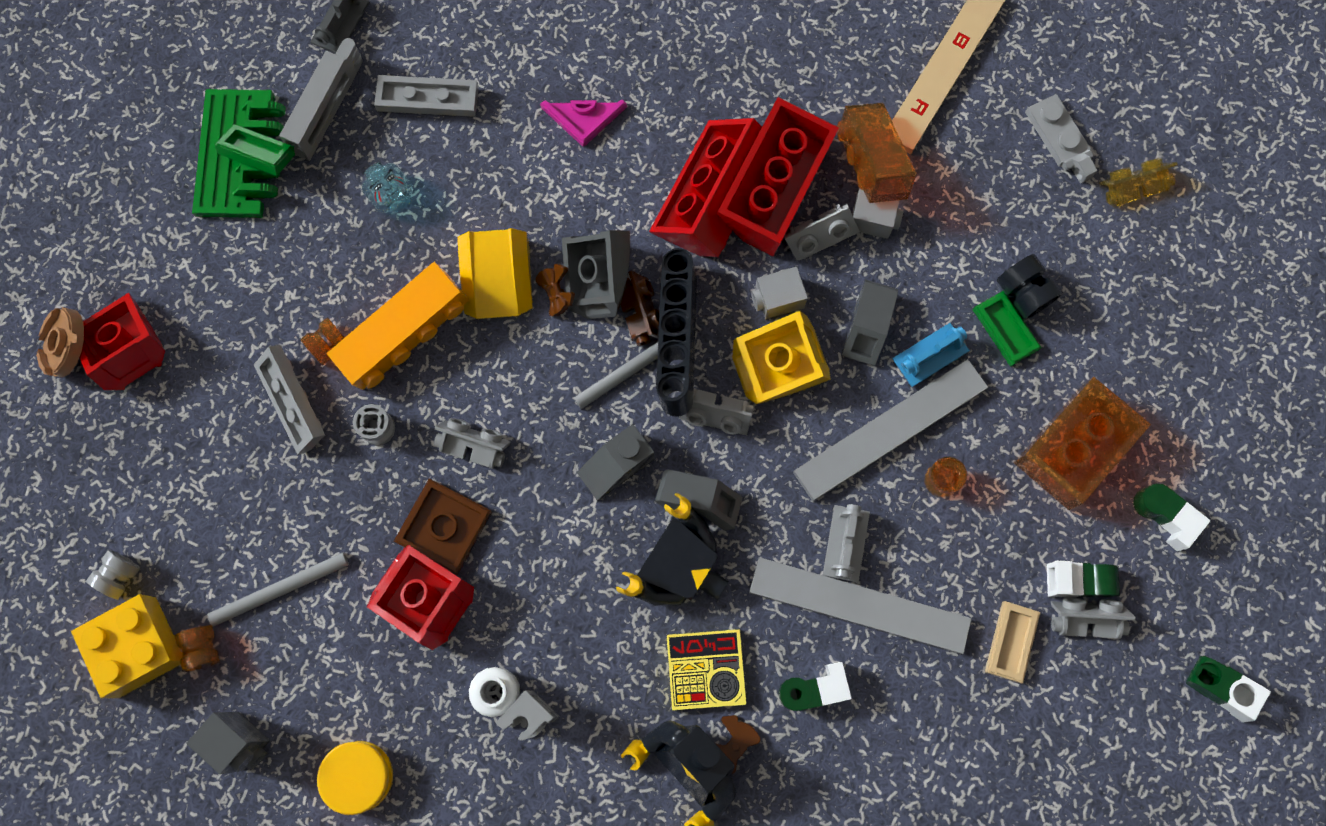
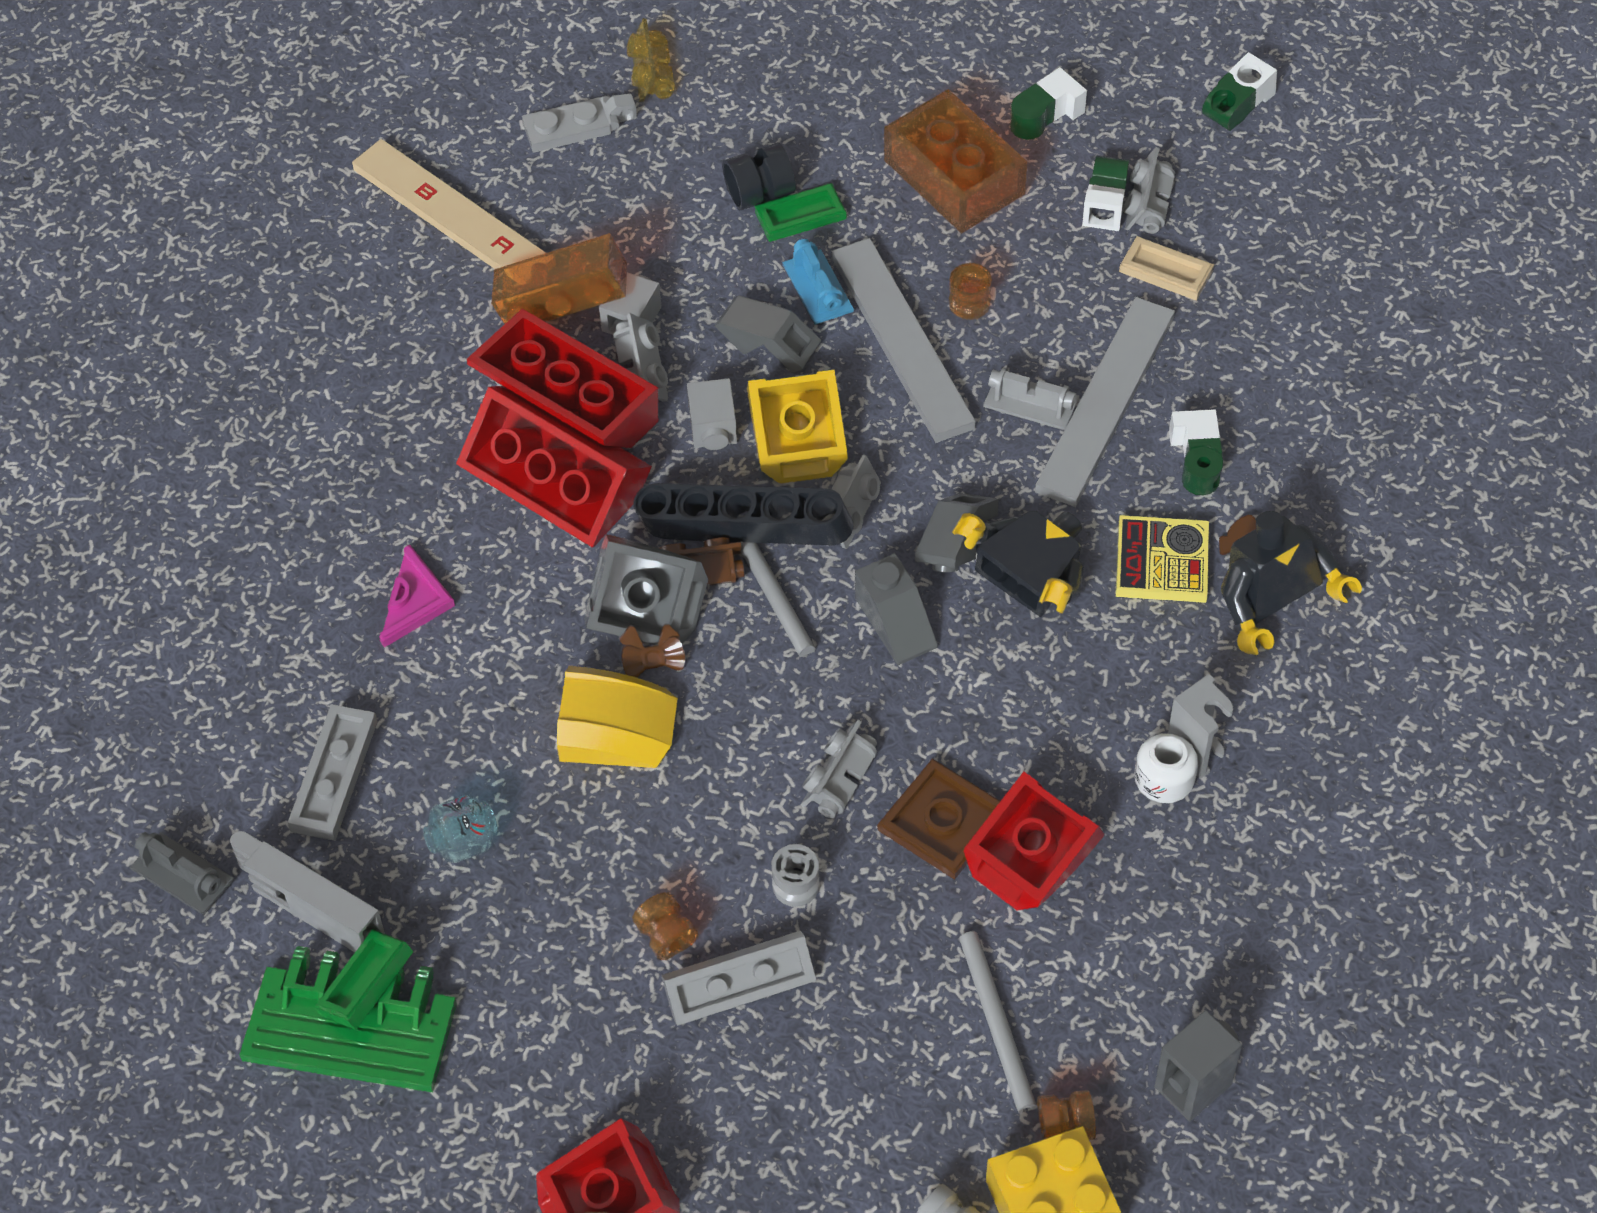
camera: 80 degrees left, 20 degrees down
(354, 777) = (1254, 942): yellow head -> none
(398, 327) = (668, 826): light orange brick -> none

